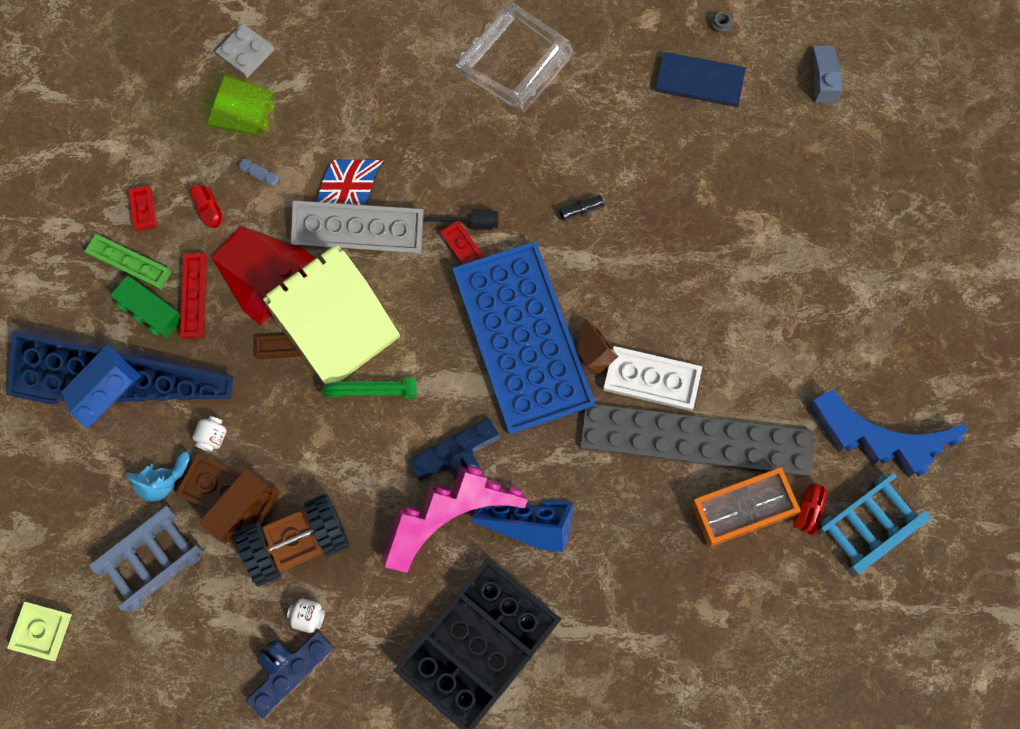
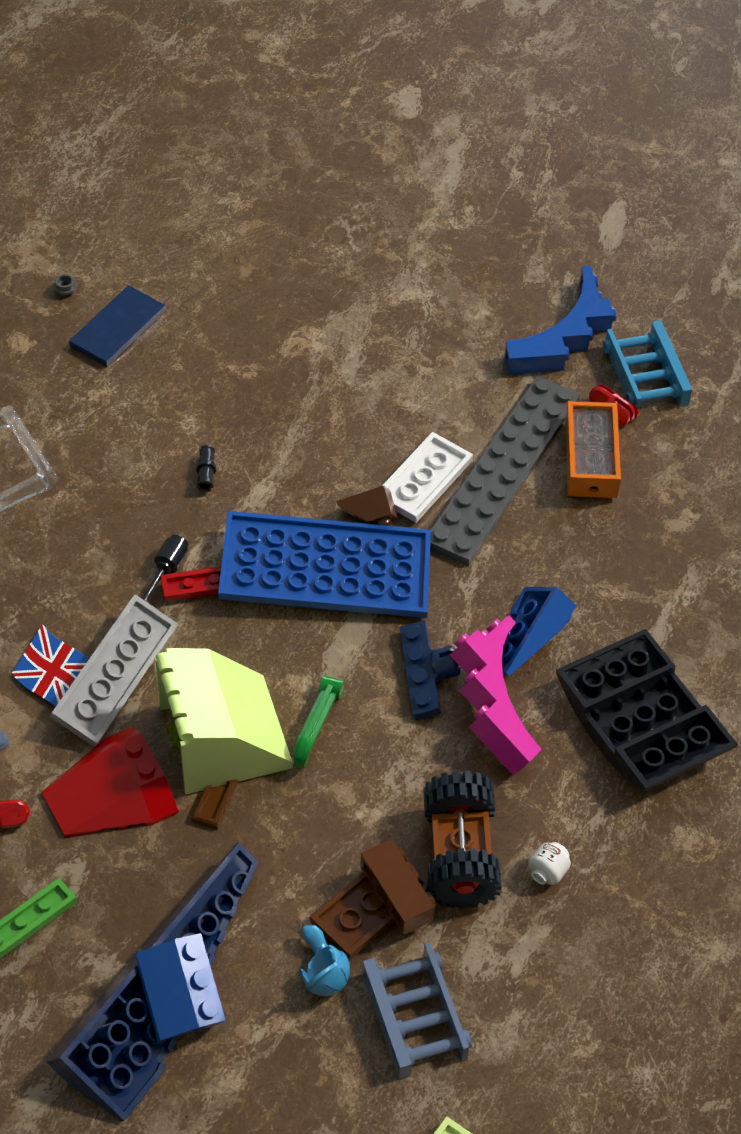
camera: 75 degrees left, 20 degrees down
(146, 308) = (94, 918): green brick -> none
(193, 296) = (106, 865): red plate -> none
(209, 434) = (292, 896): white head -> none
(286, 671) = (602, 906): dark blue plate -> none
(826, 74) = (175, 229): sand blue slope -> none

